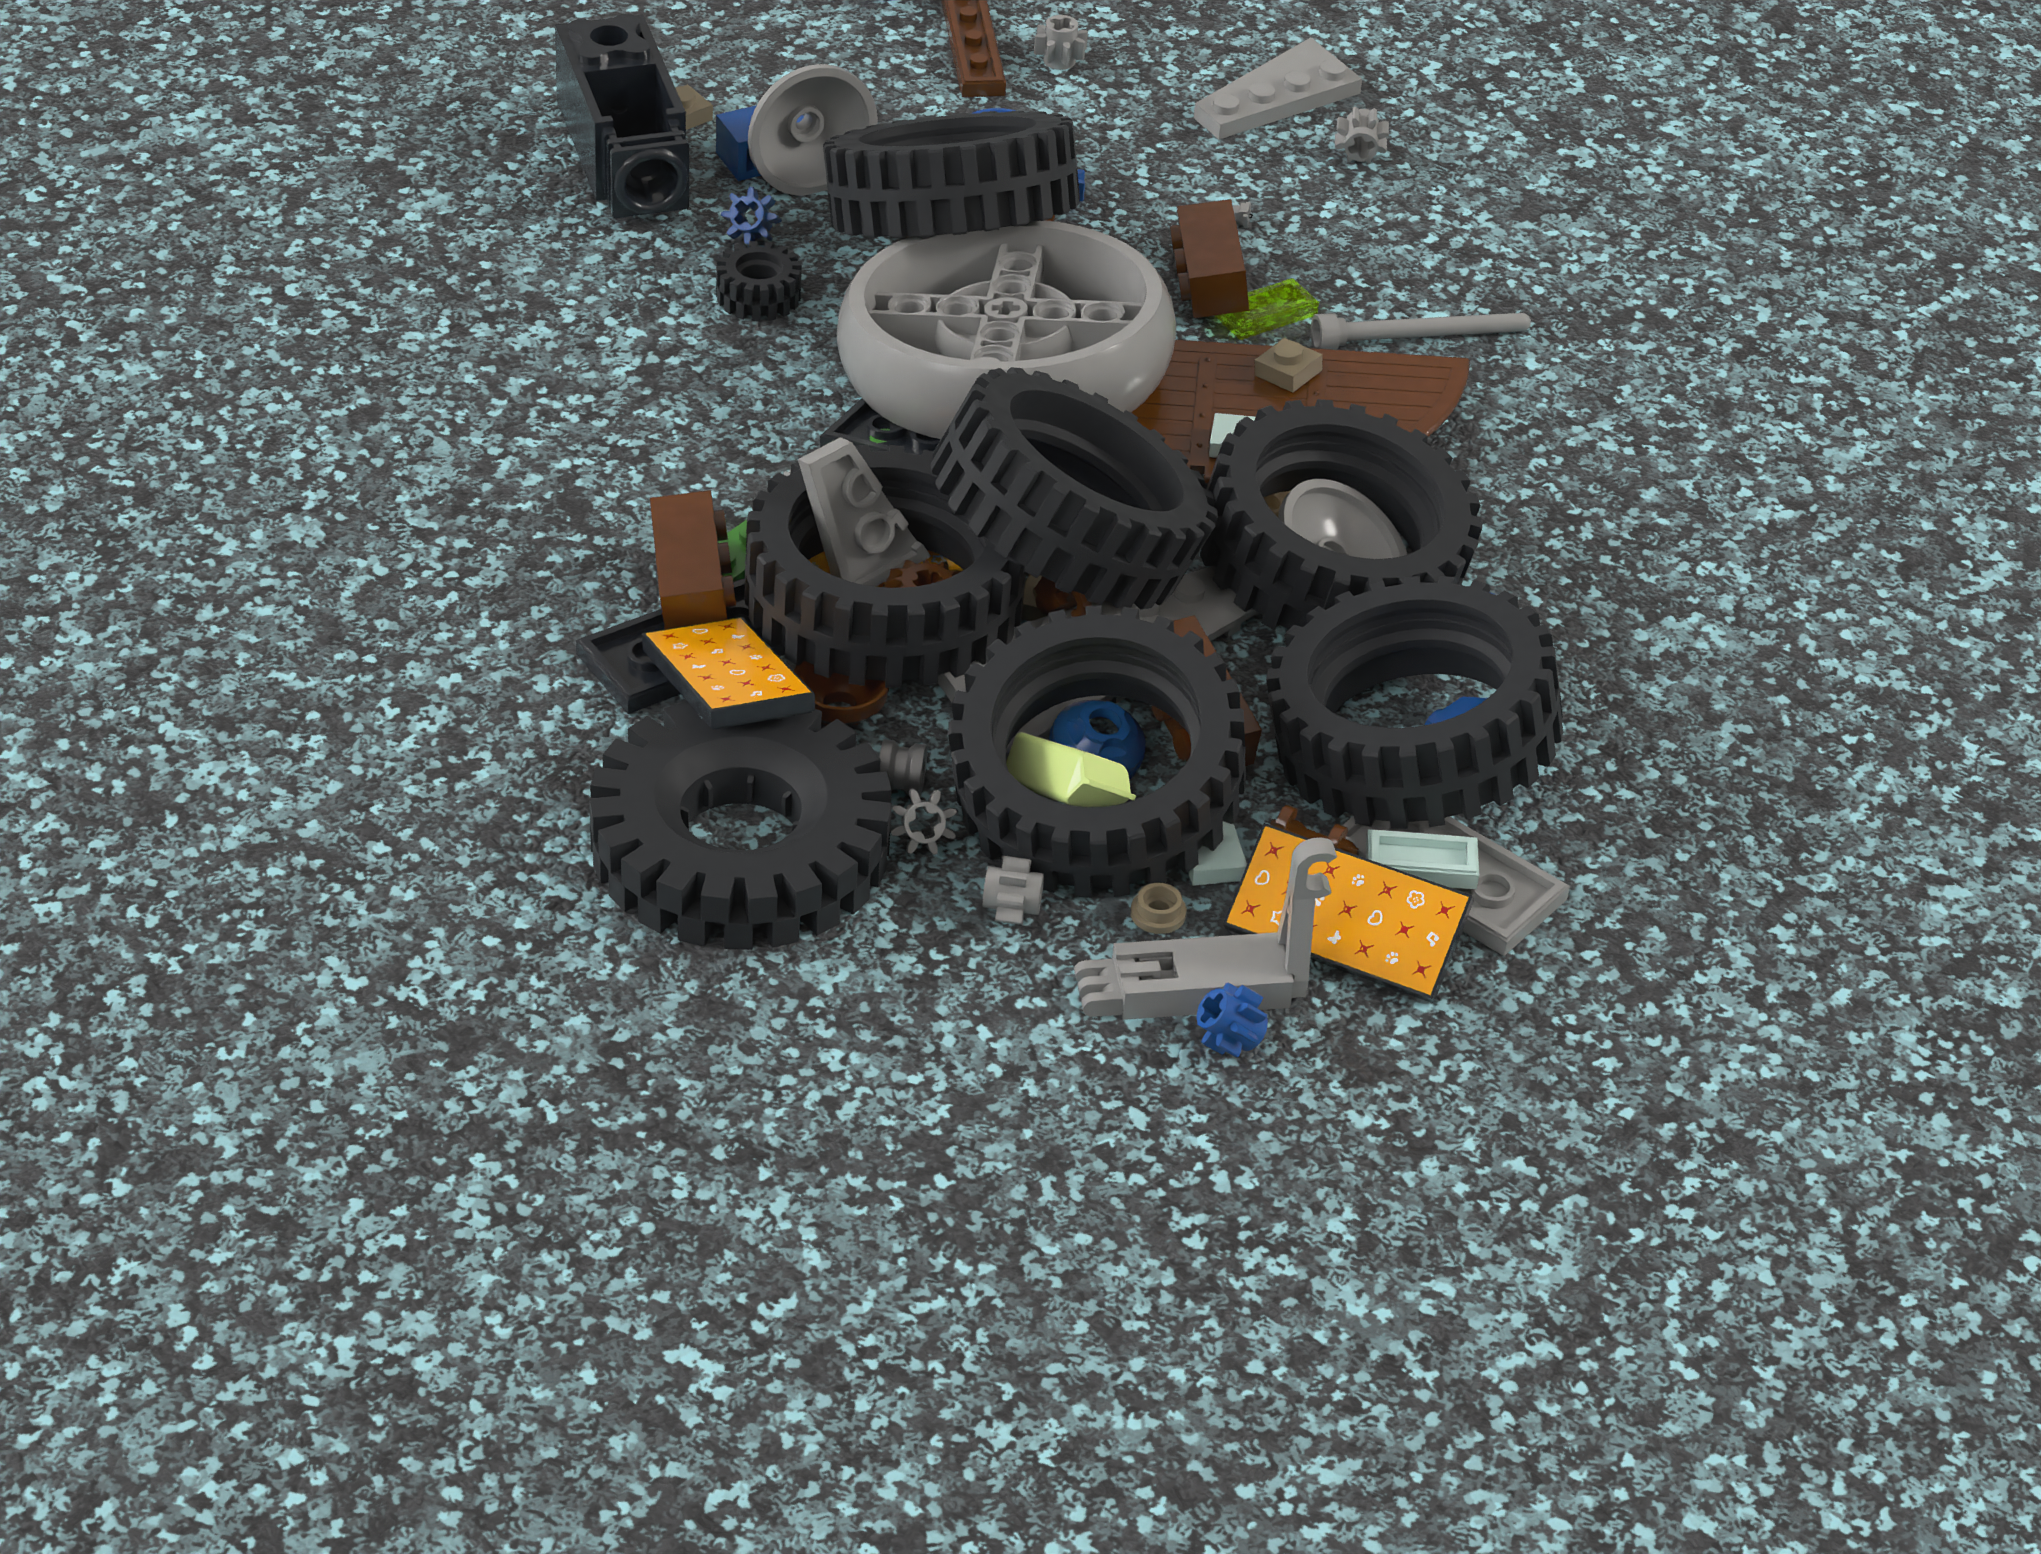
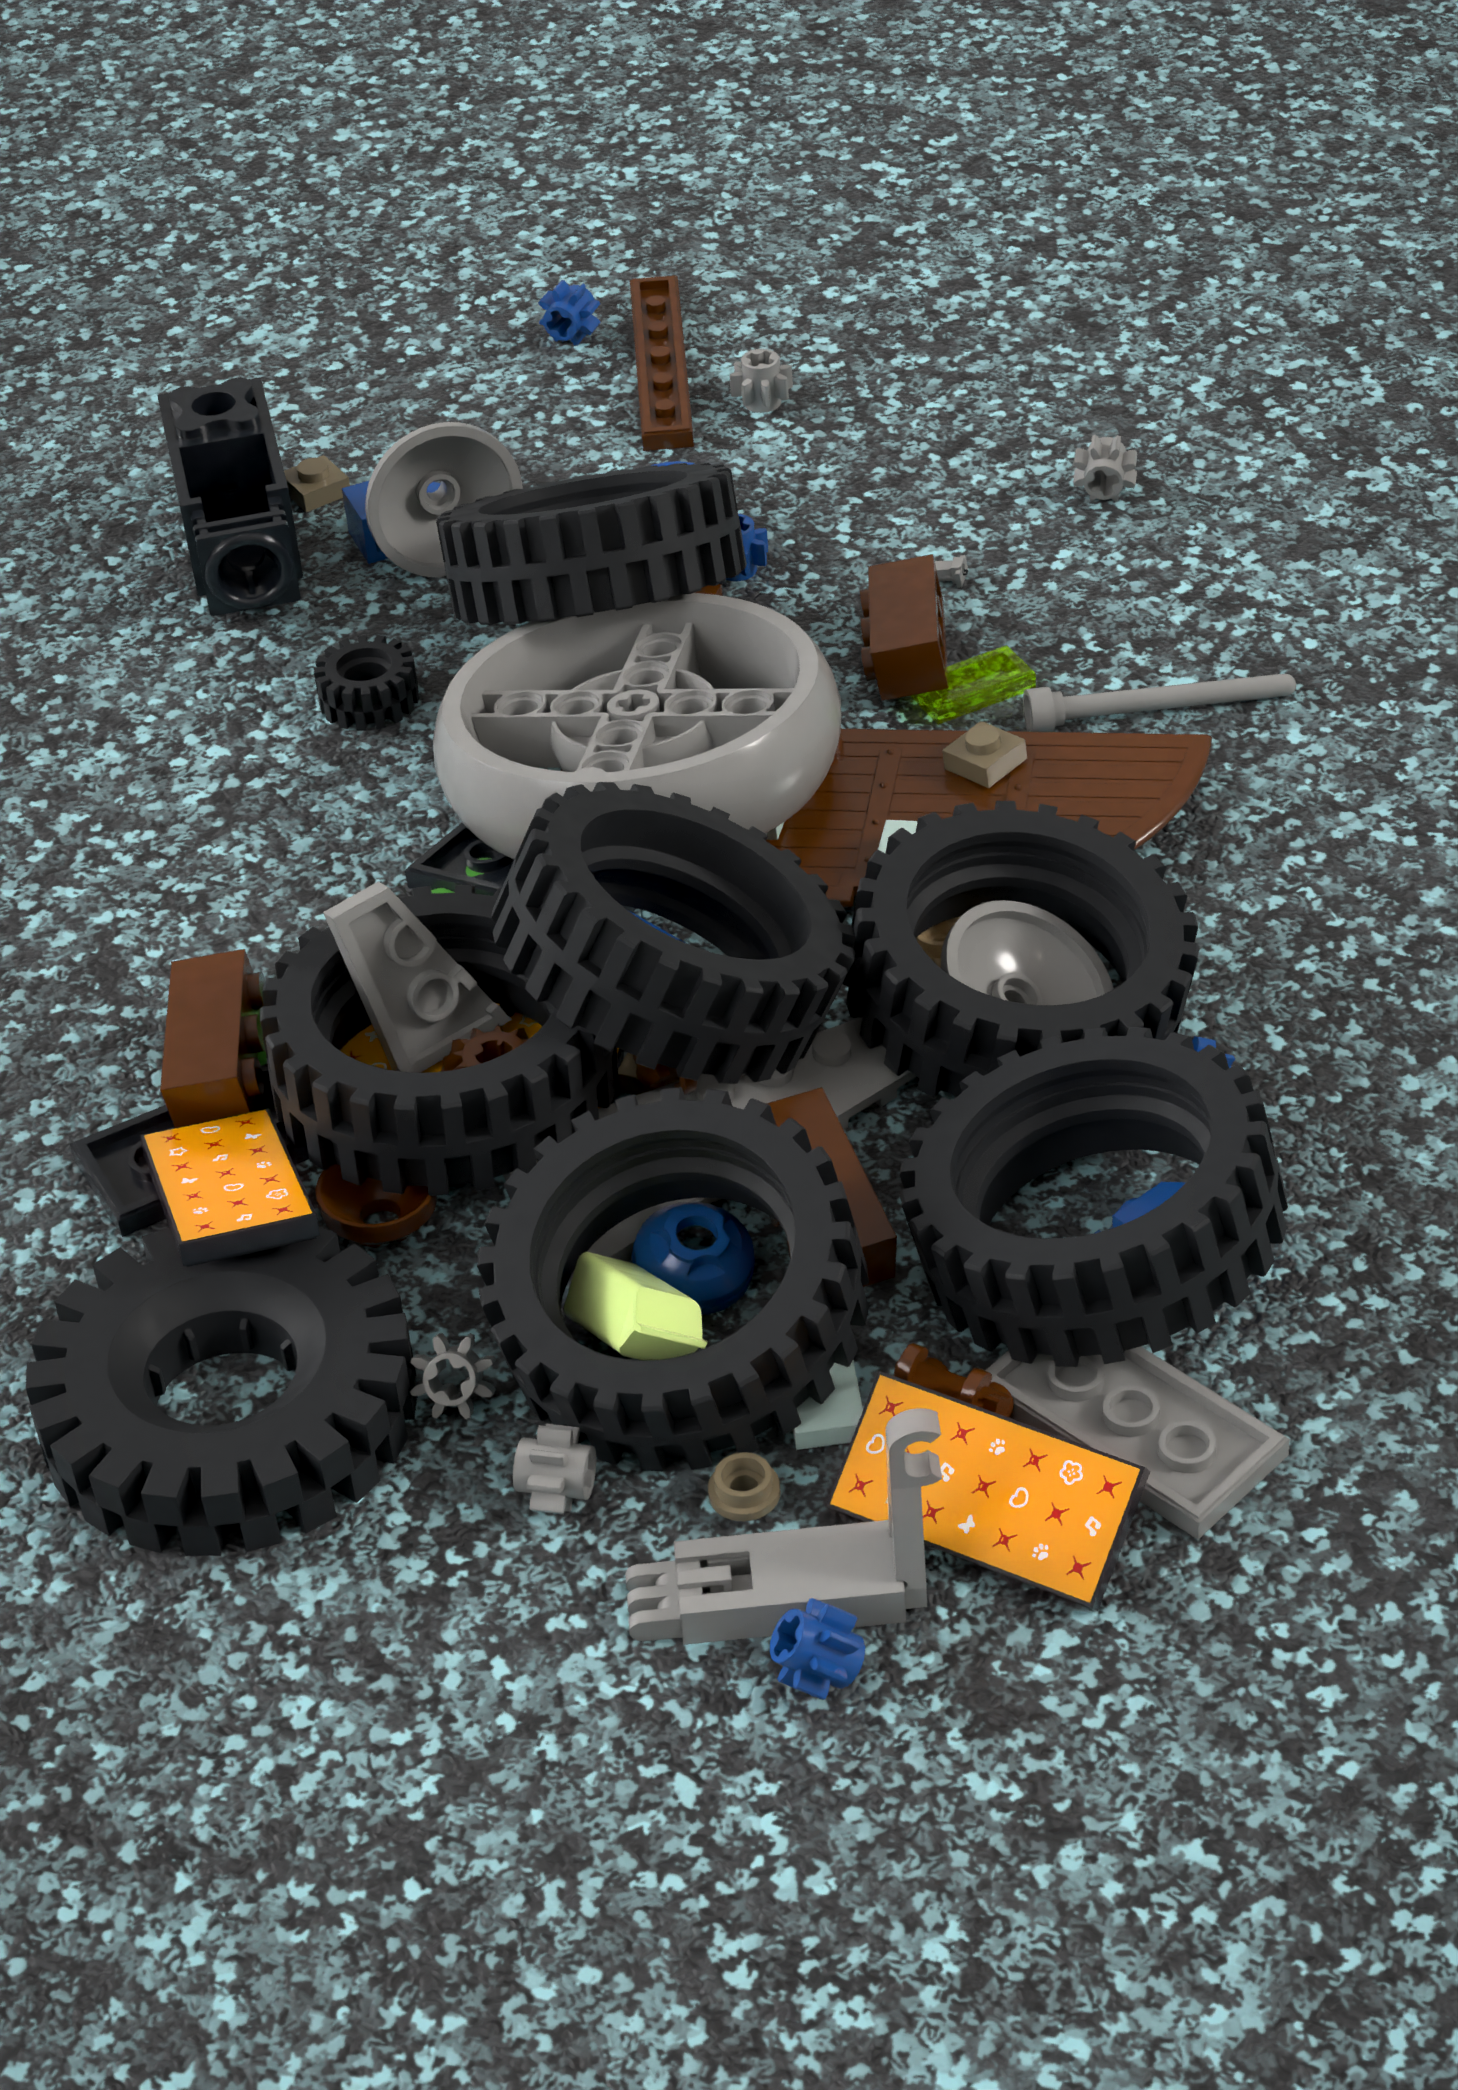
camera: 10 degrees right, 0 degrees up
(739, 220) = (380, 602): blue gear -> none
(904, 765) = (439, 1301): flat silver wheel -> none
(1278, 89) = (1014, 420): light grey wing -> none
(1434, 857) = (1096, 1407): light aqua tile -> none

